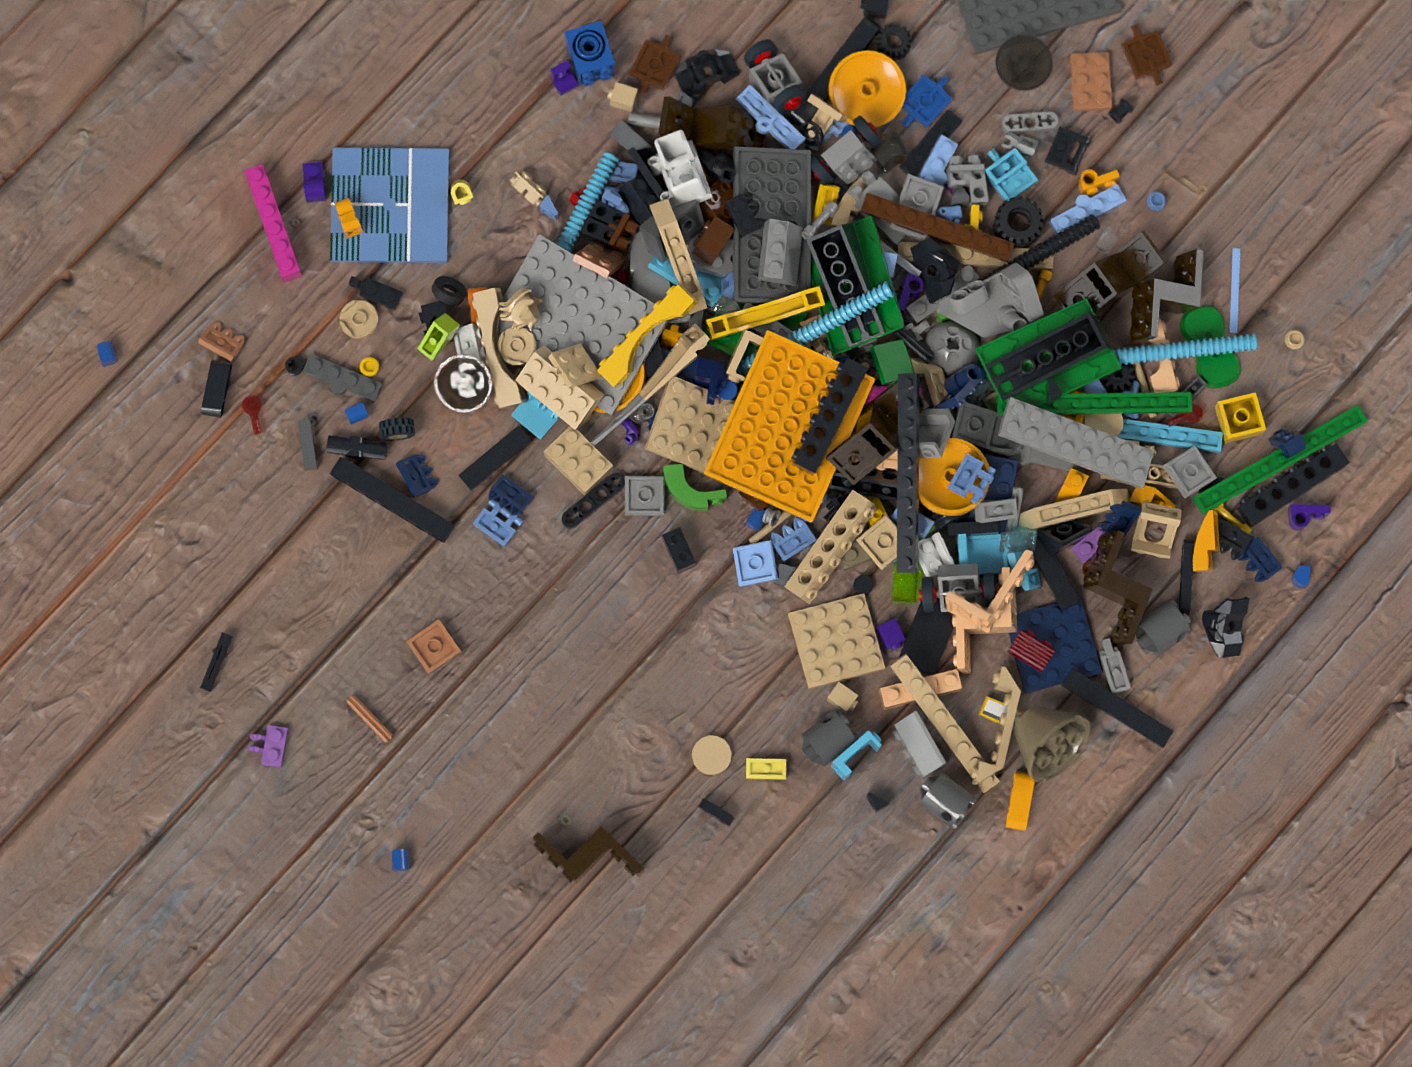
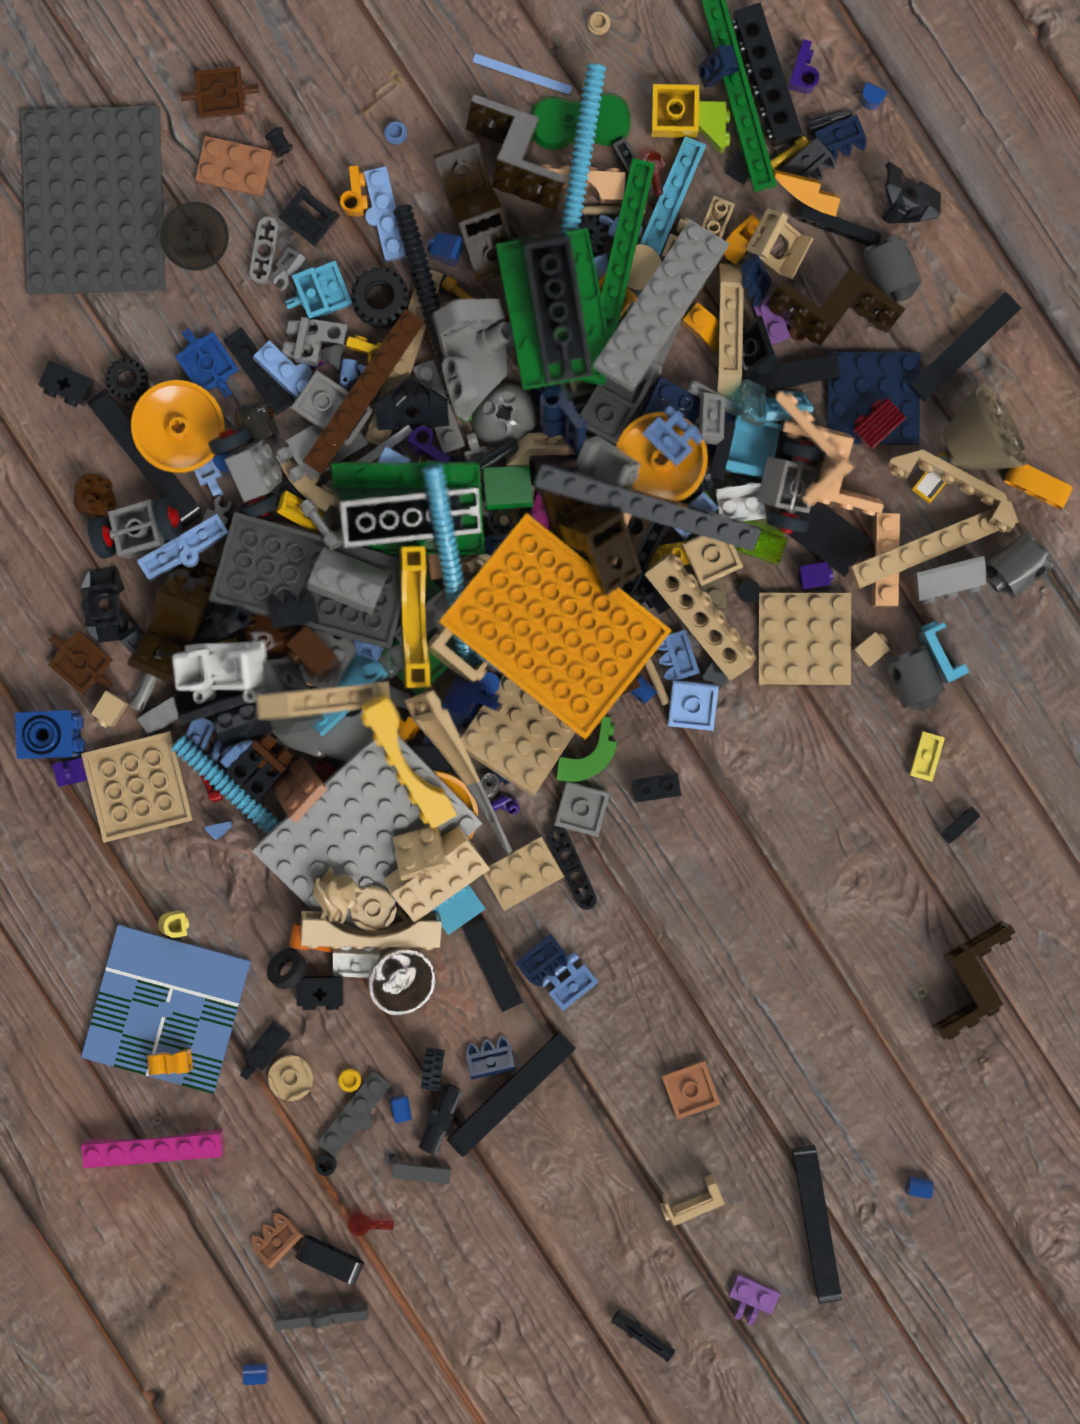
camera: 70 degrees left, 10 degrees up
(165, 387) = (321, 1318): none -> dark grey hinge
(314, 182) = (116, 1088): dark purple plate -> none
(347, 781) = (816, 1224): none -> black beam
(354, 685) = (694, 1206): none -> tan panel
(369, 718) = (752, 1180): nougat axle -> none
(438, 336) = (339, 996): lime slope -> none
(523, 182) = (178, 849): tan hinge -> none
(565, 135) = (137, 786): none -> tan plate
(711, 755) = (894, 812): tan tile -> none
(771, 516) = (646, 674): light grey bush -> none
(793, 39) = (93, 495): none -> reddish brown plate
(821, 121) = (201, 489): tan piece -> none
(856, 374) = (556, 565): black brick -> none
(876, 802) = (999, 643): black slope -> none
(1053, 392) = (598, 315): black slope -> none
(1072, 264) = (446, 248): none -> blue slope
(1113, 668) = (917, 337): light grey hinge -> none
(1189, 471) = (722, 186): light grey plate -> none
(1241, 451) = (713, 122): none -> lime slope
(1270, 543) = (826, 120): none -> black axle

